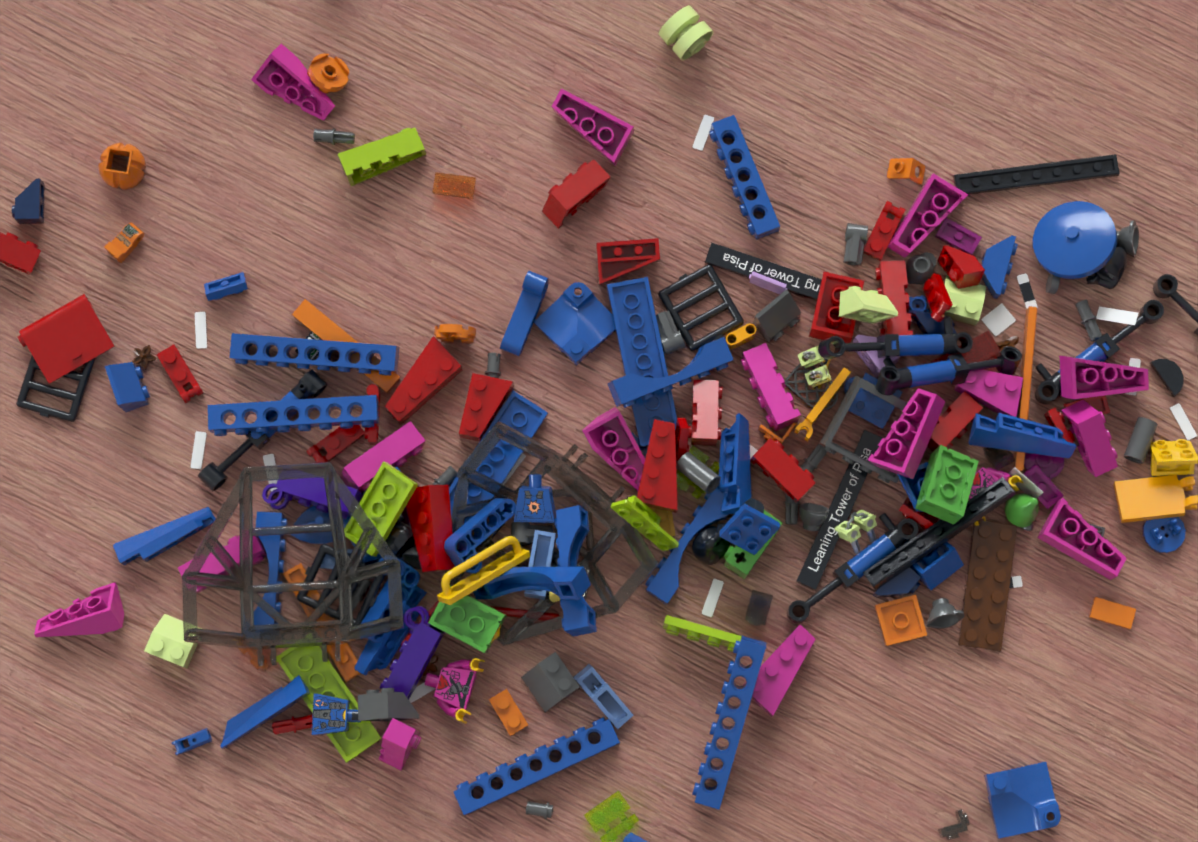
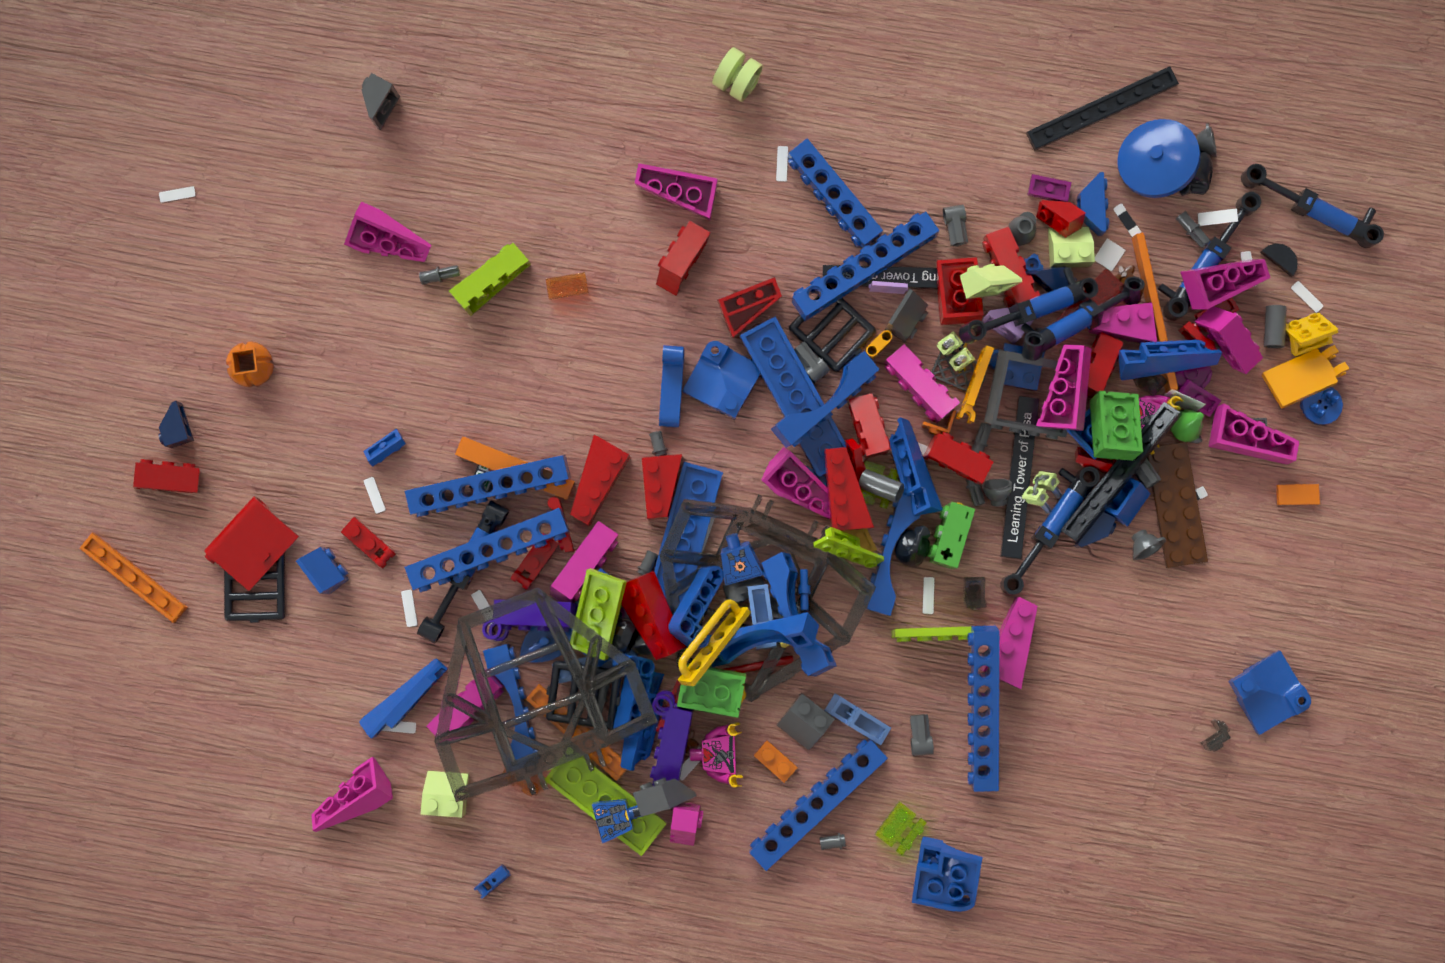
camera: 15 degrees left, 5 degrees up
(124, 242) = (276, 435): orange leg -> none
(143, 356) = (329, 537): reddish brown plant -> none
(154, 564) = (405, 727): none -> white sticker
(264, 711) = (550, 832): blue wedge -> none
(292, 724) = (580, 836): red axle -> none
(325, 82) = (414, 225): orange plate -> none
(452, 332) = (607, 426): orange plate -> none
(590, 550) = (804, 590): none -> blue bar
(659, 736) = (921, 740): none -> dark grey piece
(750, 527) = (948, 523): blue plate -> none
(819, 230) = (921, 223): none -> blue brick
(883, 231) = (978, 204): red plate -> none
(900, 620) = (1108, 562): orange plate -> none
(905, 169) = (980, 140): orange bracket -> none
(929, 209) = (1014, 173): dark pink wedge -> none
(937, 297) = (1050, 251): red plate -> none
(965, 544) = (1147, 475): none -> dark grey piece
(1052, 284) = (1149, 206): dark grey tile -> none

